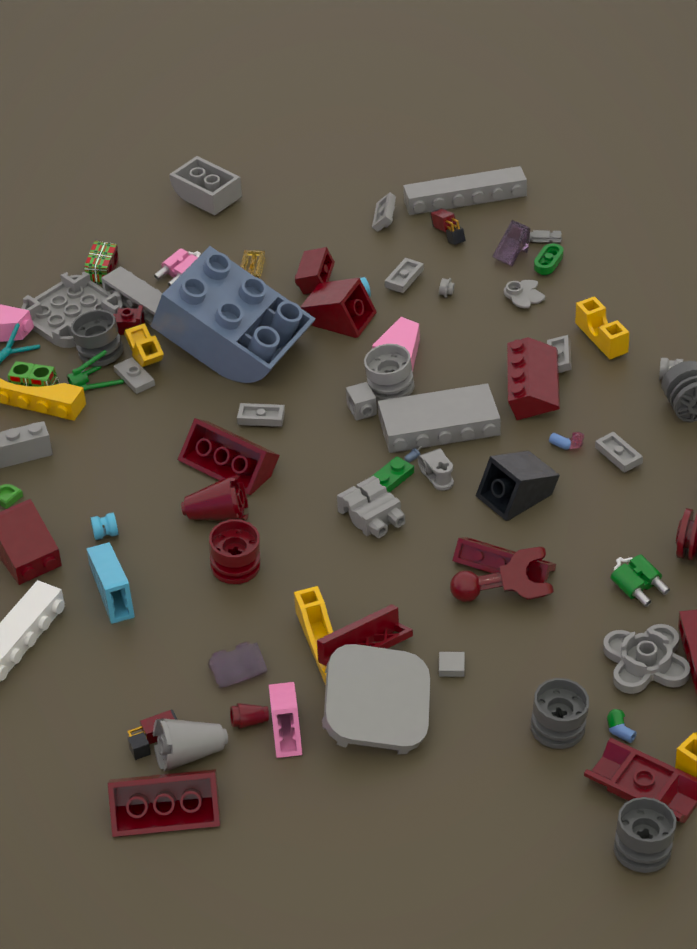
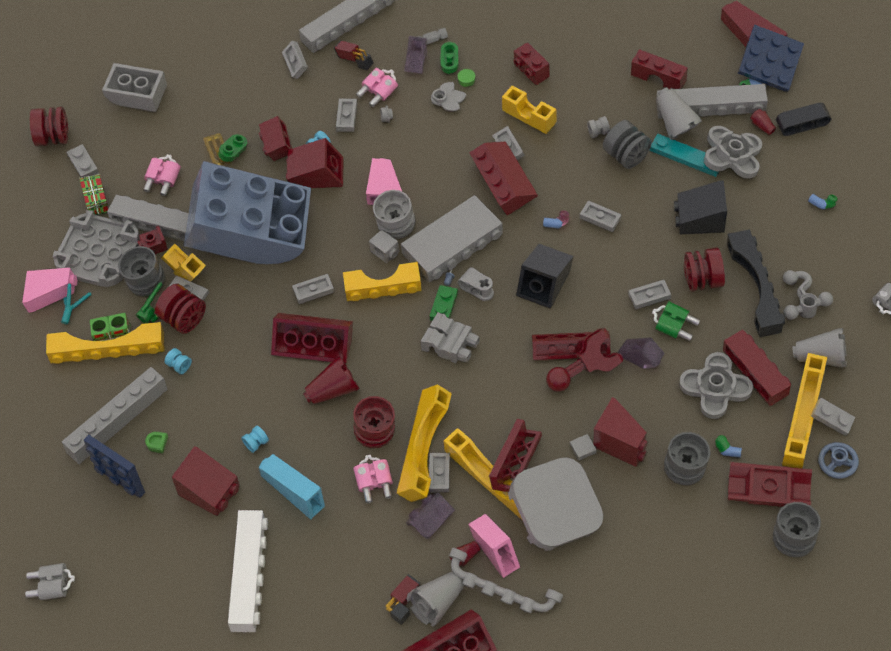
camera: 25 degrees left, 15 degrees up
(78, 430) = (180, 362): none -> medium azure wheel
(98, 190) = (46, 126): none -> dark red wheel
(111, 382) = (180, 308): none -> dark red wheel
(113, 232) = (82, 161): none -> light grey plate
(201, 604) = (372, 476): none -> bright pink piece
(255, 608) = (415, 477): none -> yellow arch
(265, 772) = (490, 588): none -> light grey bar
(267, 266) = (235, 144): none -> green plate
(275, 628) = (439, 472): none -> light grey plate
(360, 438) = (360, 286): none -> yellow arch
(456, 260) = (378, 84): none -> bright pink piece
(495, 660) = (620, 435): none -> dark red slope
(555, 282) = (466, 77): none -> bright green tile
(580, 595) = (642, 352): none -> slope
(626, 543) = (649, 294): none -> light grey plate
(633, 289) = (531, 63): none -> dark red brick

